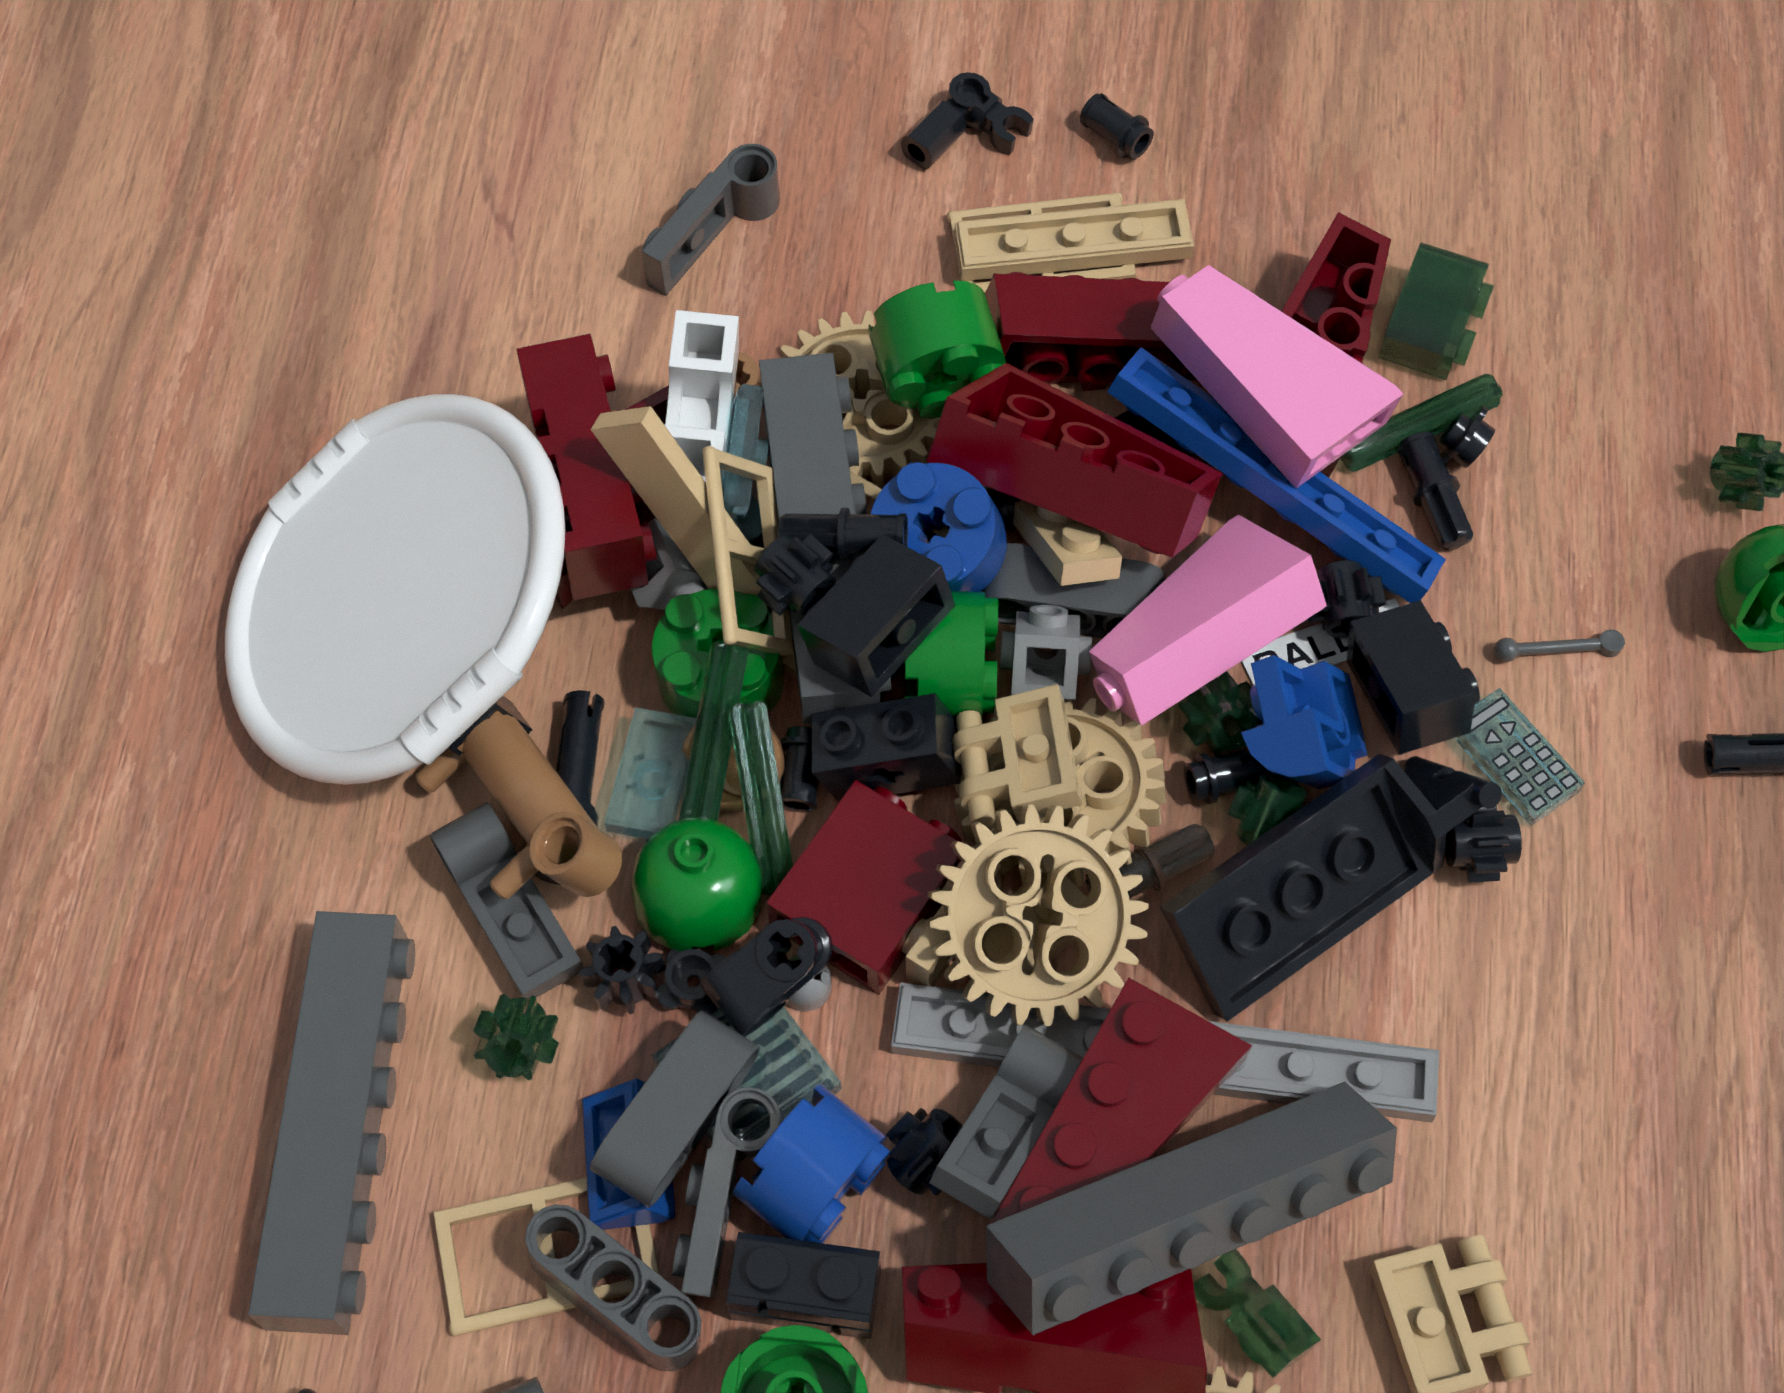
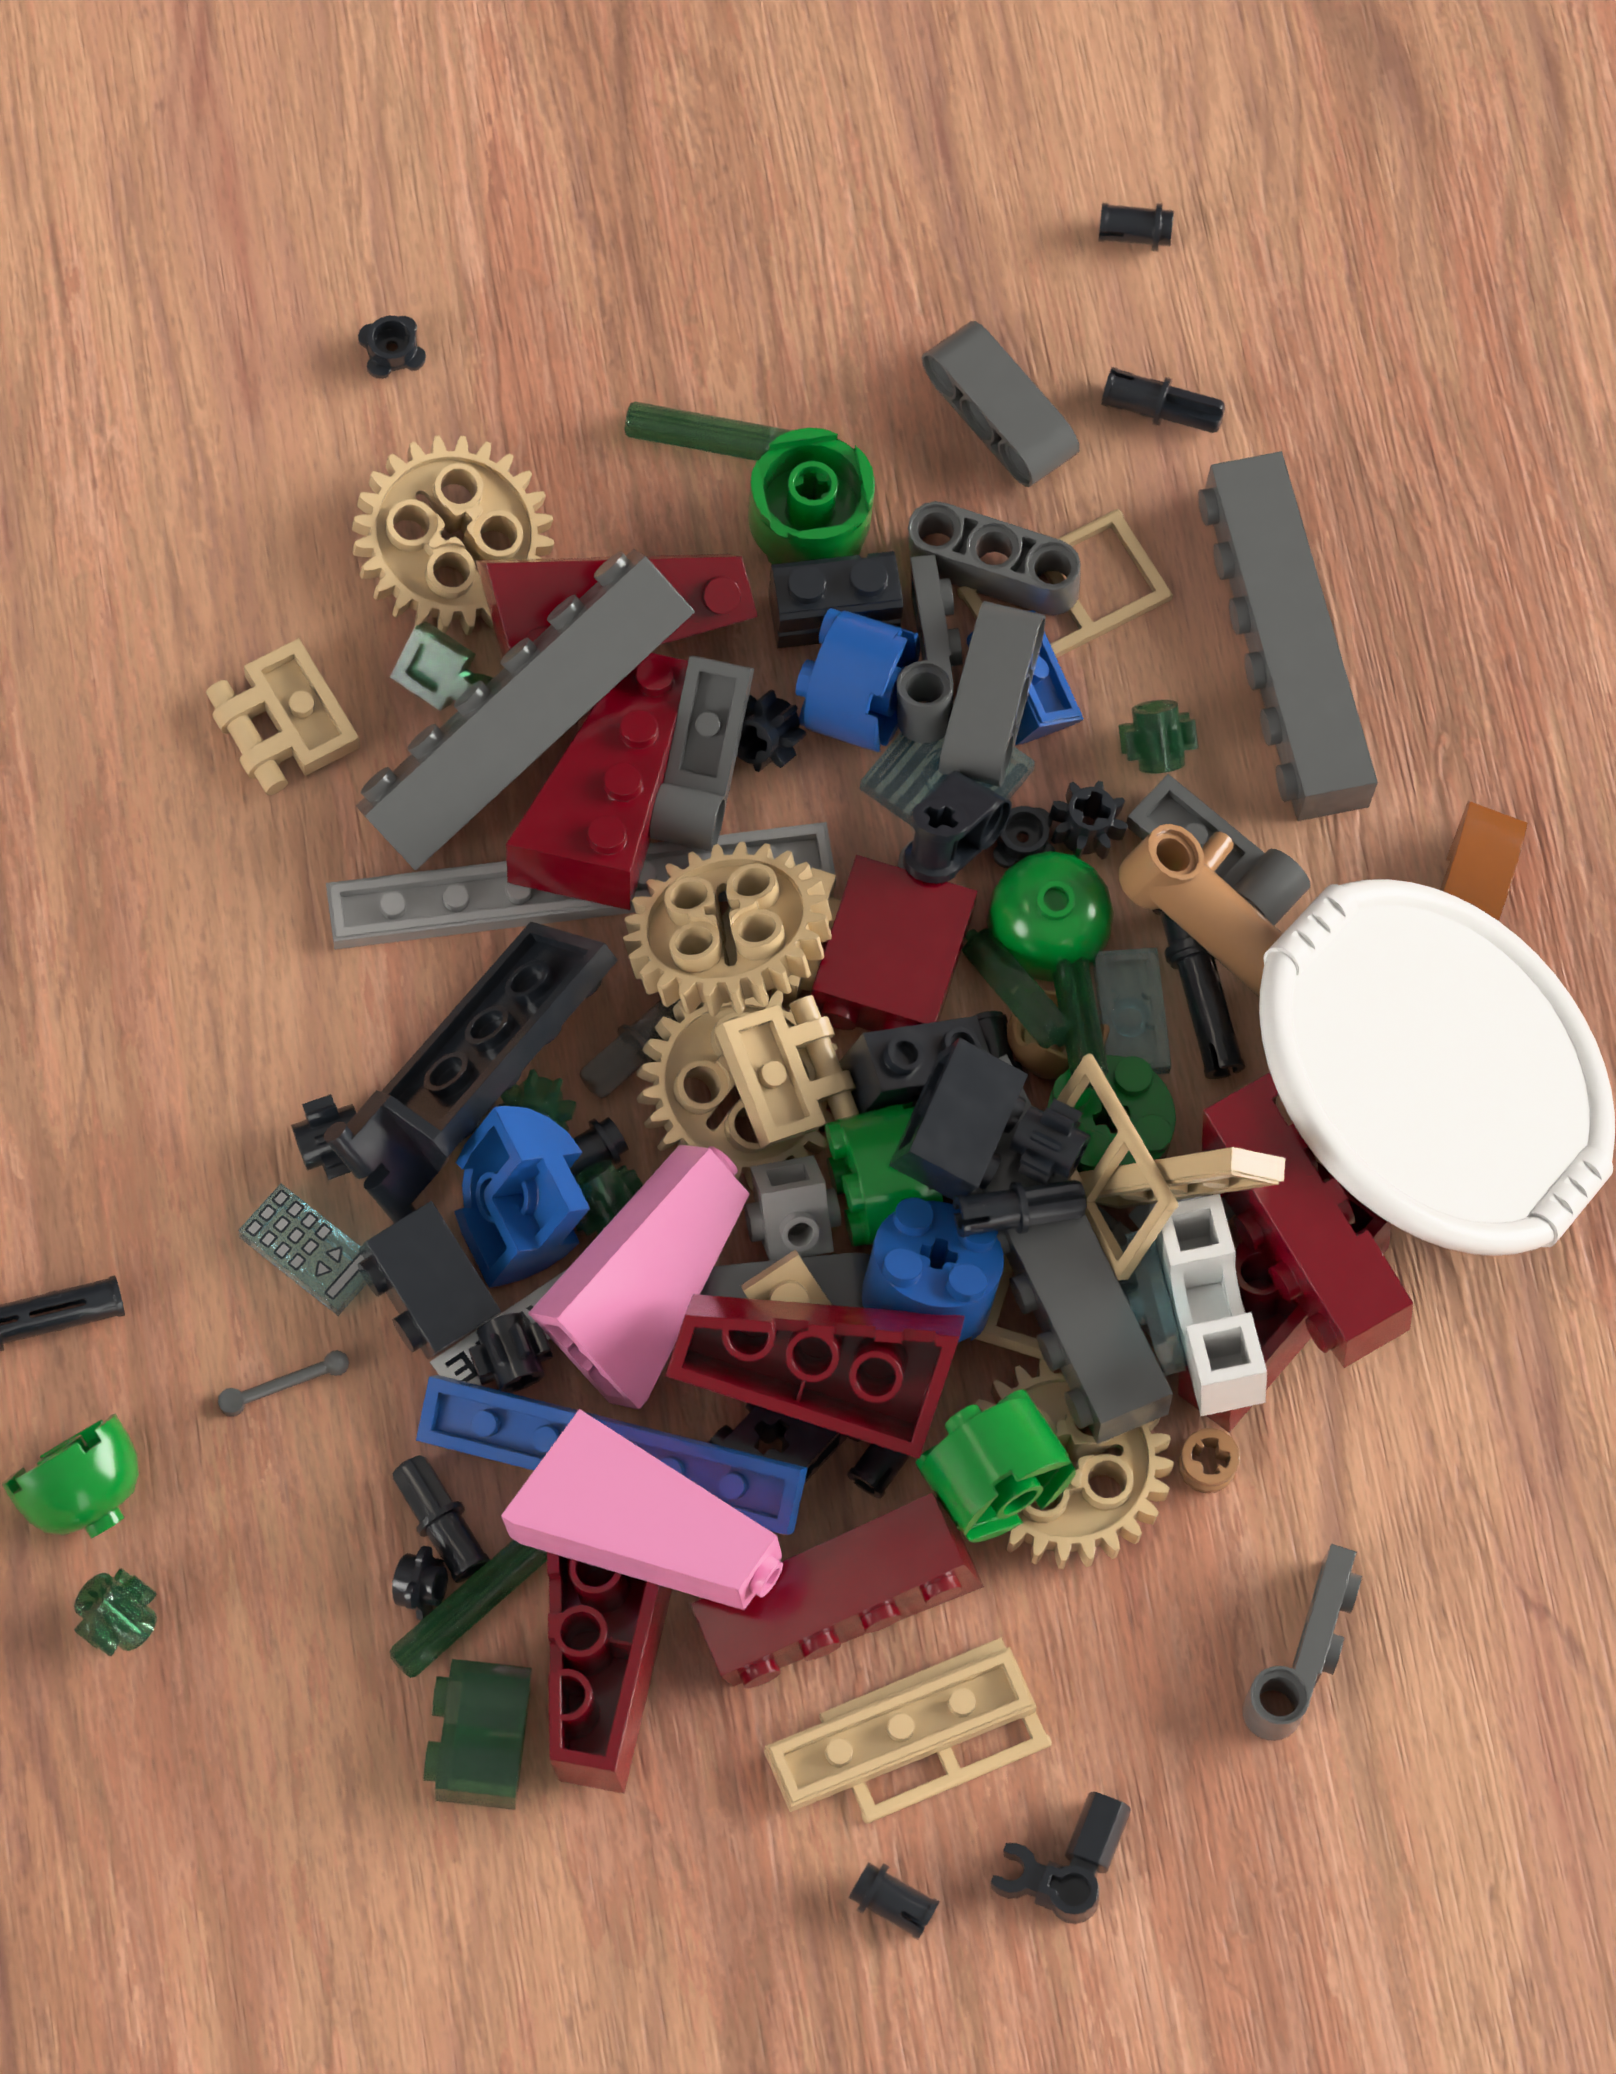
camera: 155 degrees right, 5 degrees up
(247, 824) = (1484, 858): none -> dark orange slope

